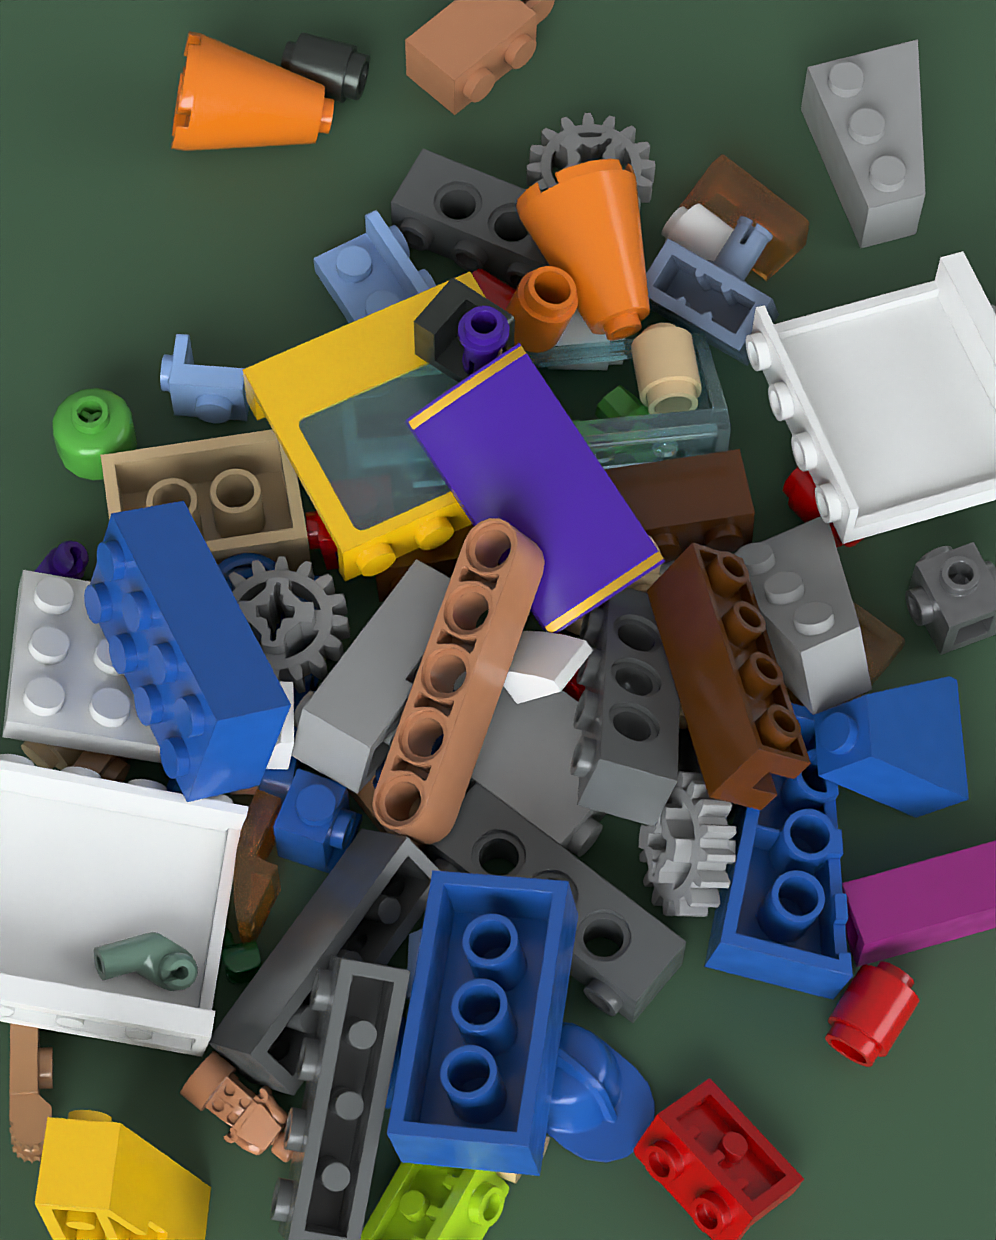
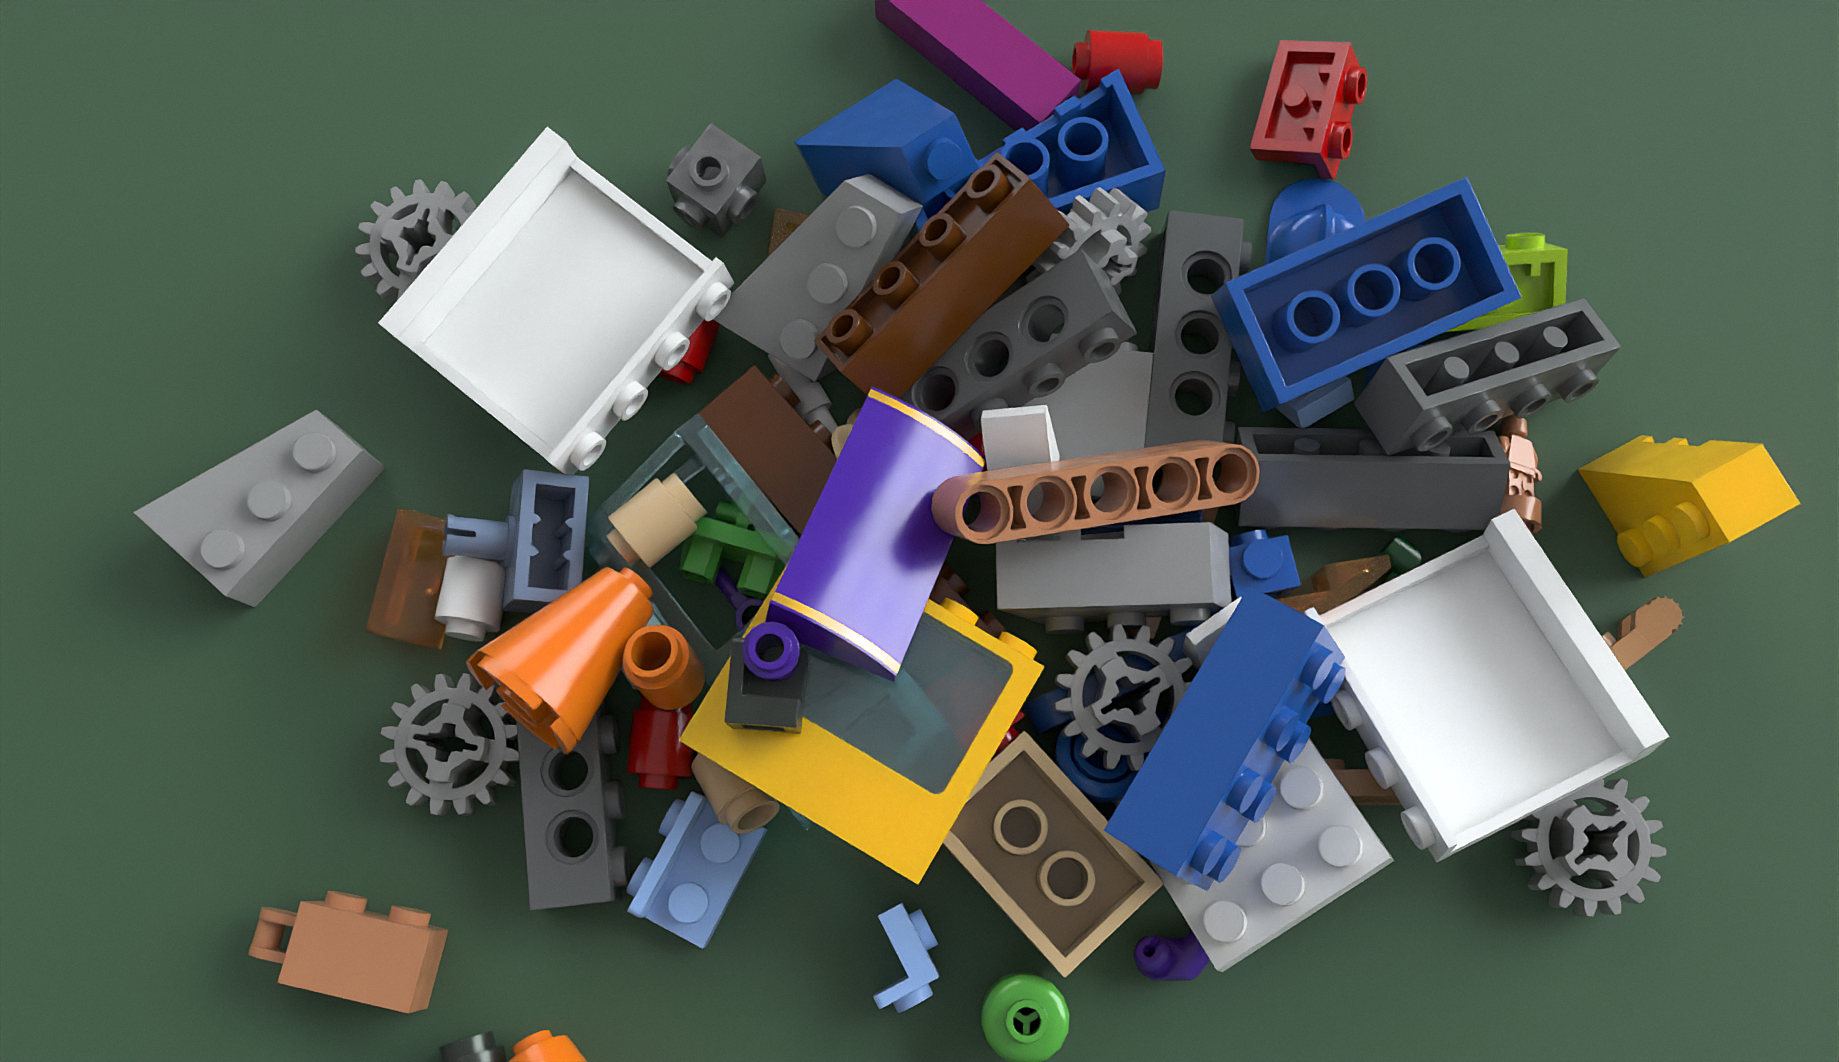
camera: 120 degrees left, 15 degrees up
(150, 957) = (1472, 608): sand green arm -> none

